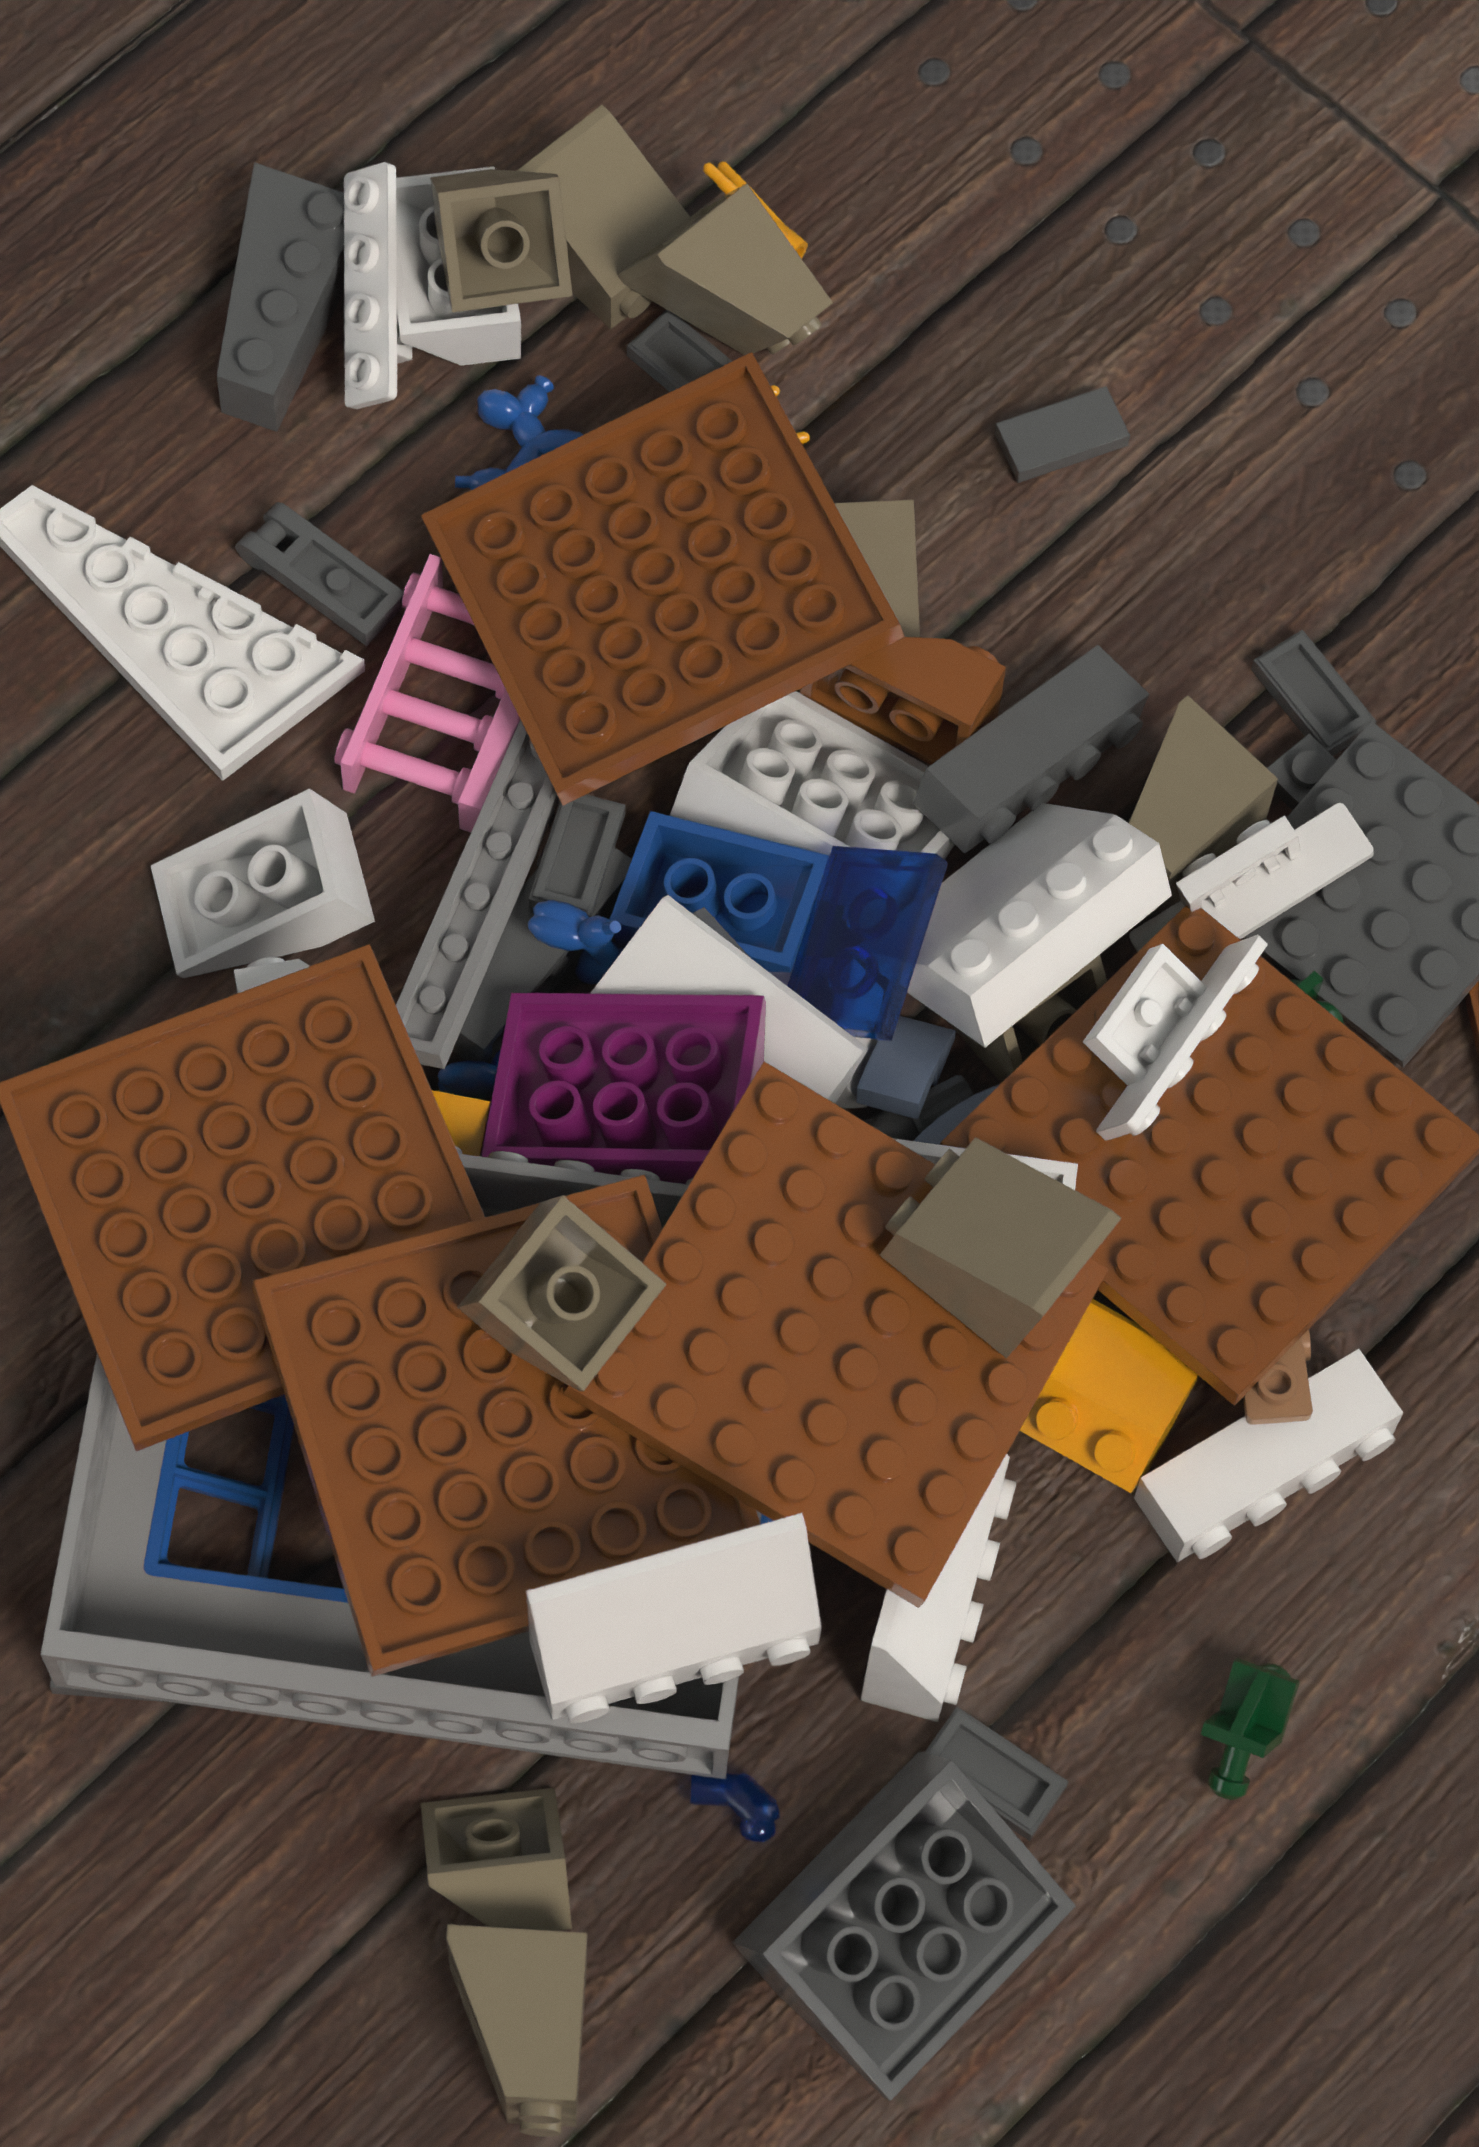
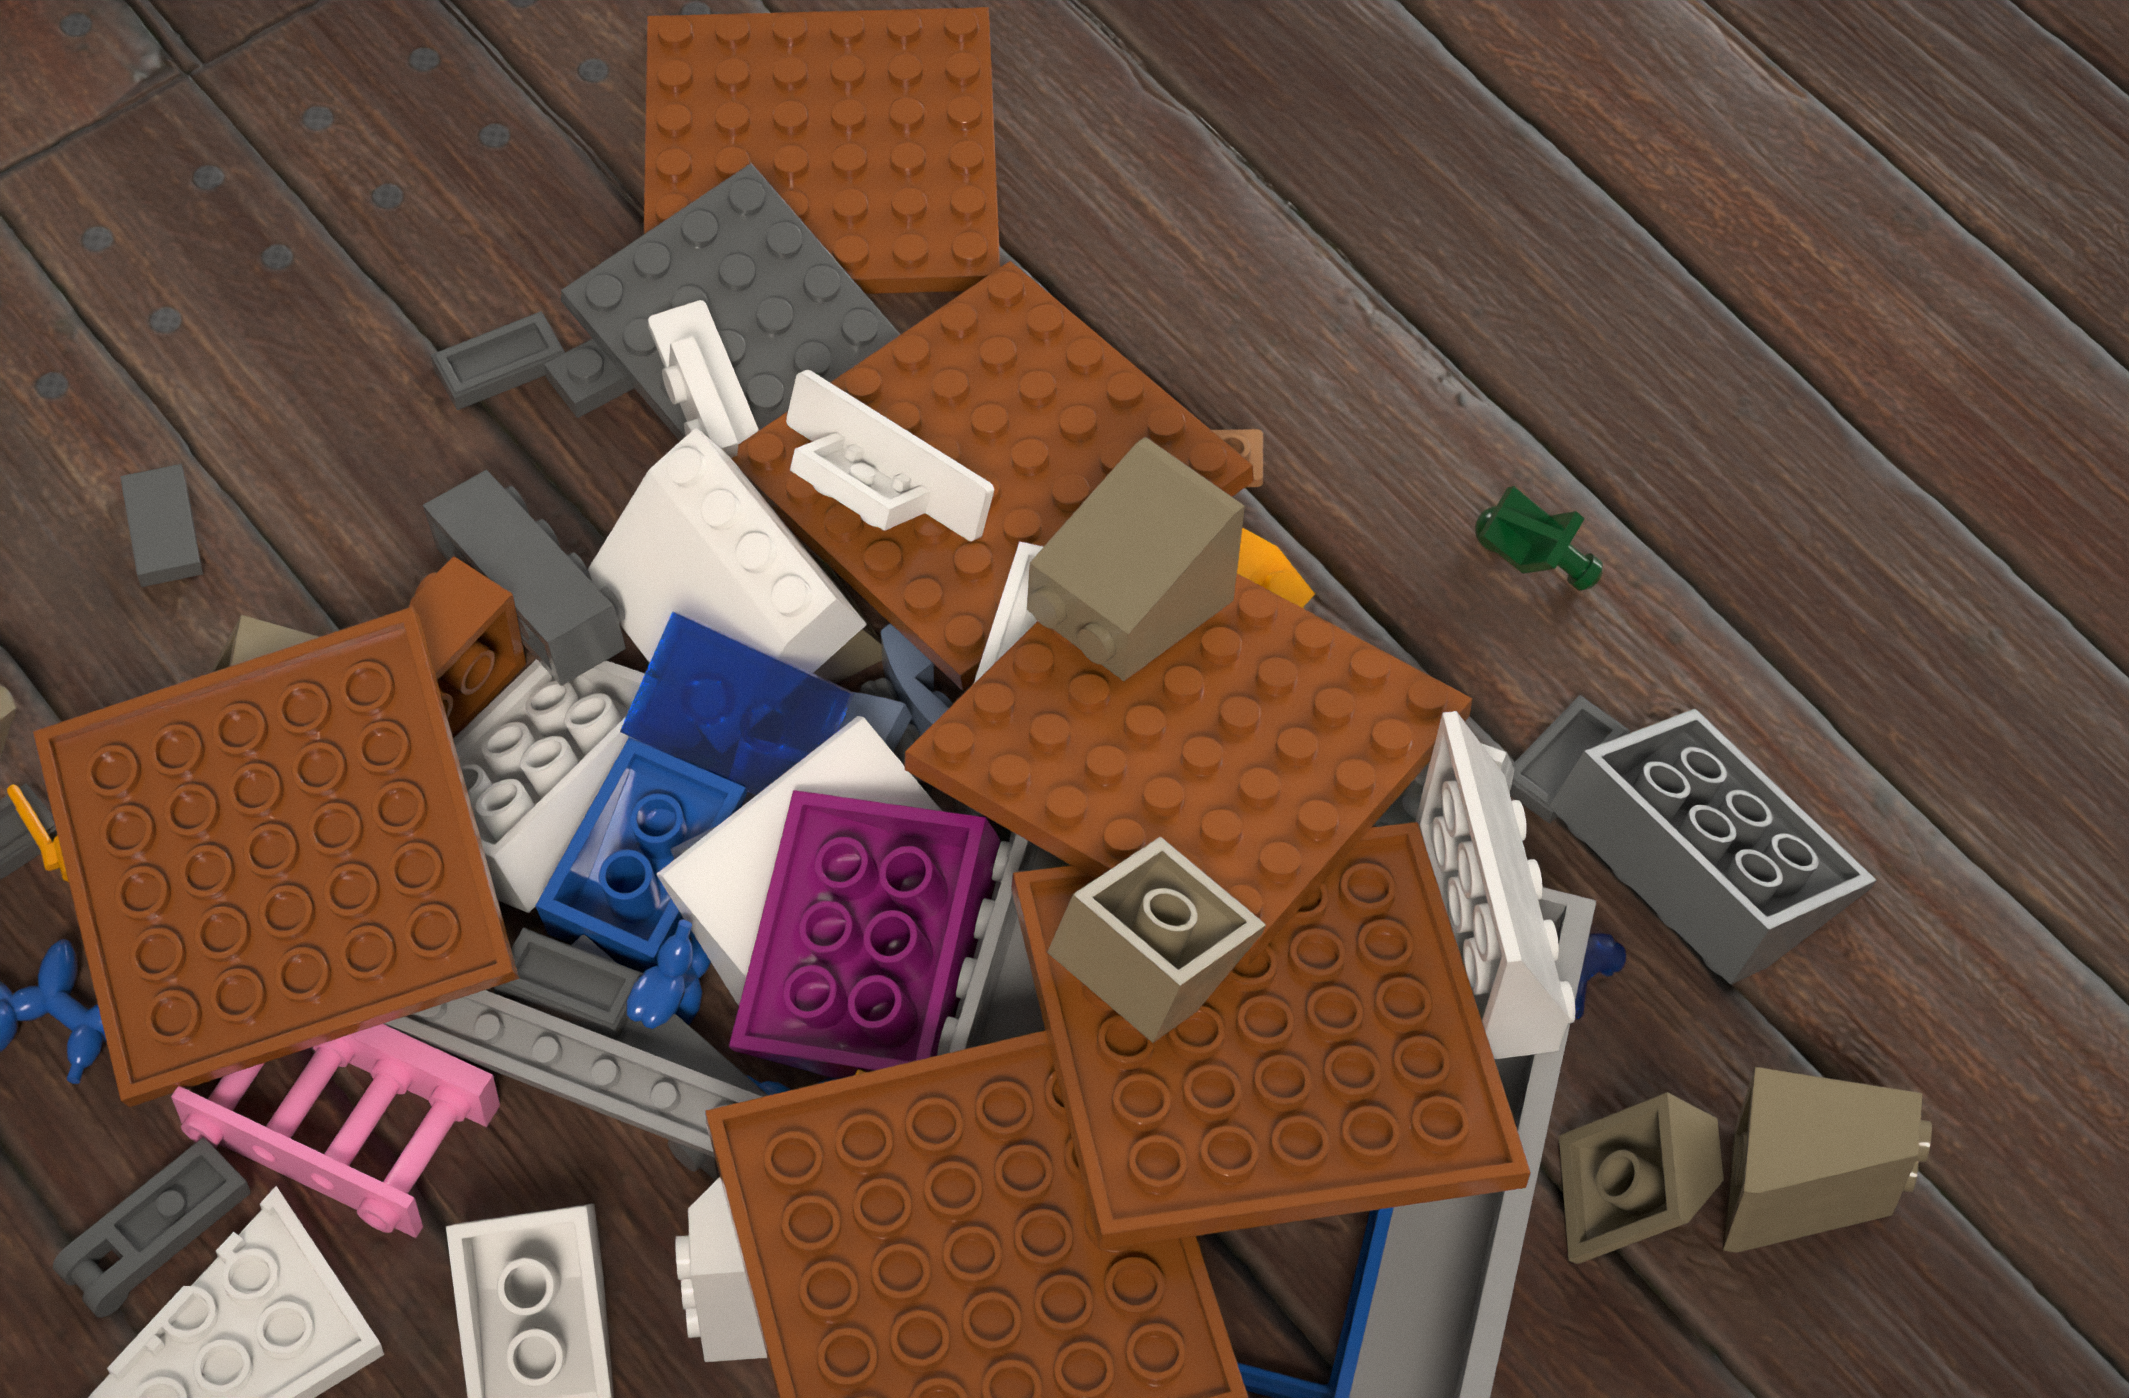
camera: 80 degrees left, 10 degrees down
(1200, 793) = (598, 438): dark tan slope -> none
(1253, 1467) = (1294, 502): white brick -> none

